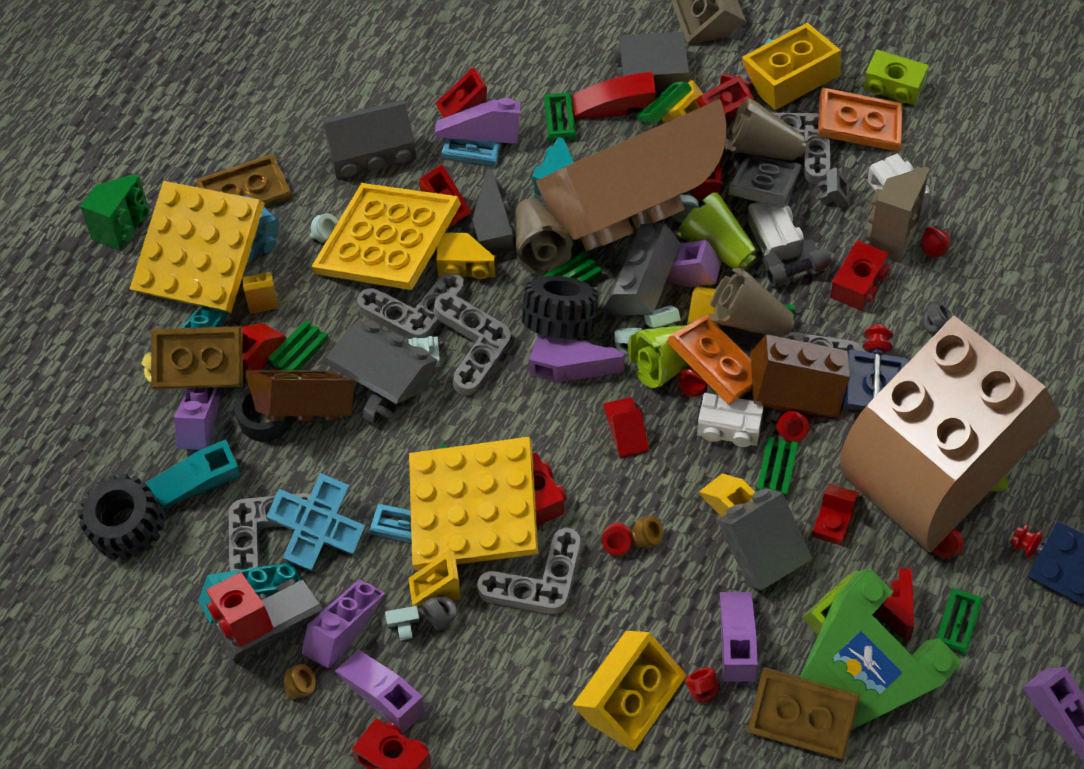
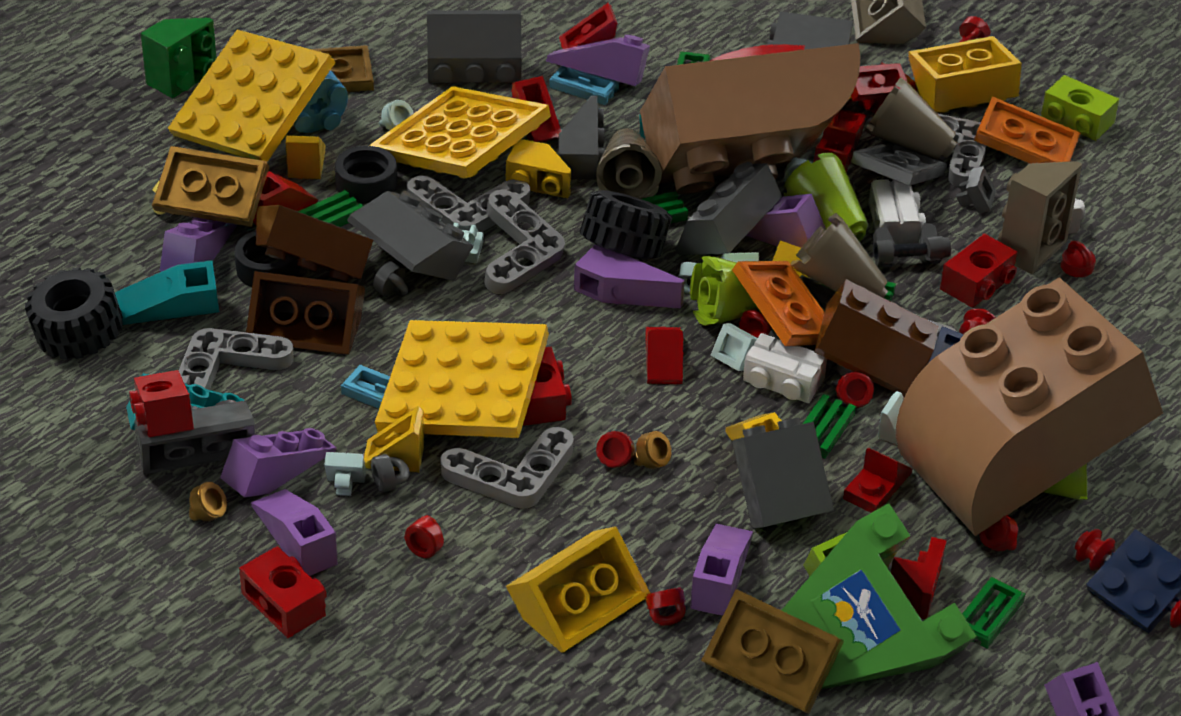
camera: 10 degrees right, 15 degrees down
(301, 456) = (306, 311): none -> reddish brown slope
(315, 522) = (282, 361): medium azure plate -> none
(318, 280) = (363, 159): none -> black tyre
(489, 669) = (424, 537): none -> red tile
(683, 407) = (733, 346): none -> light aqua tile
(785, 14) = (973, 28): none -> red tile
(833, 449) = (888, 418): none -> light aqua slope

